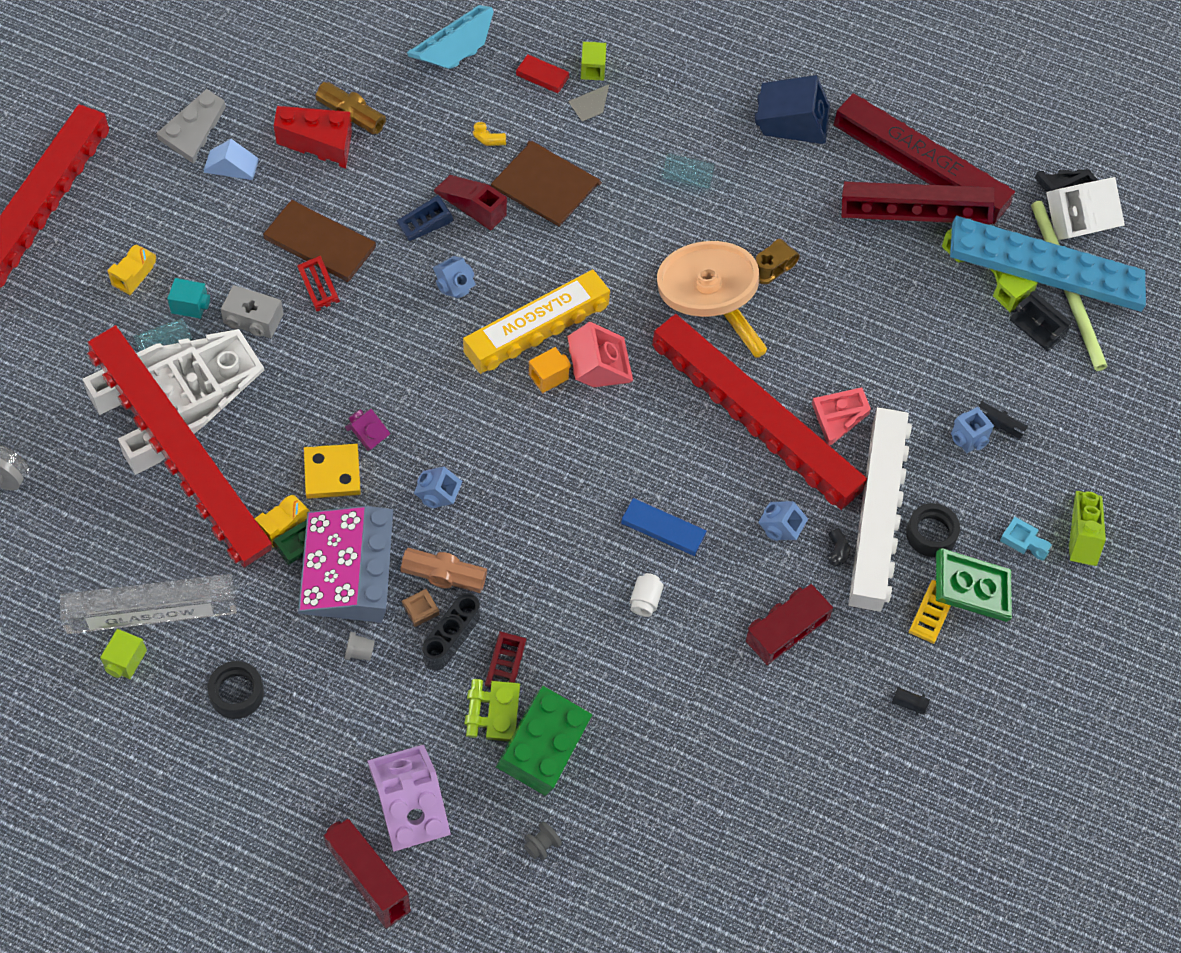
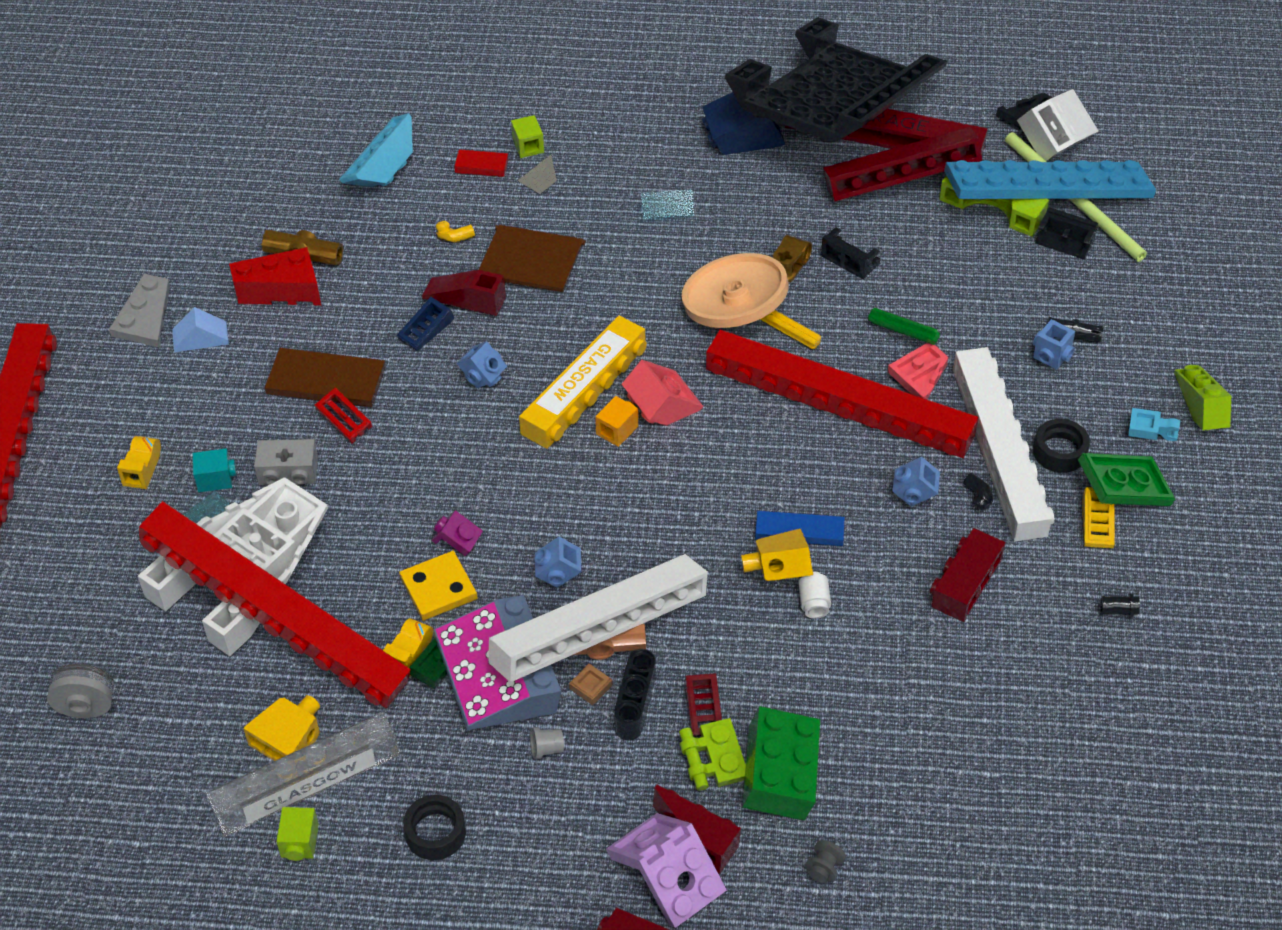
camera: 15 degrees left, 10 degrees down
(151, 557) = (284, 727): none -> yellow torso
(444, 553) = (596, 617): none -> white brick
(456, 783) = (717, 834): none -> dark red slope
(630, 550) = (780, 556): none -> yellow torso
(830, 275) = (848, 255): none -> black hinge
(845, 364) = (904, 326): none -> green axle
(885, 107) = (830, 91): none -> black slope

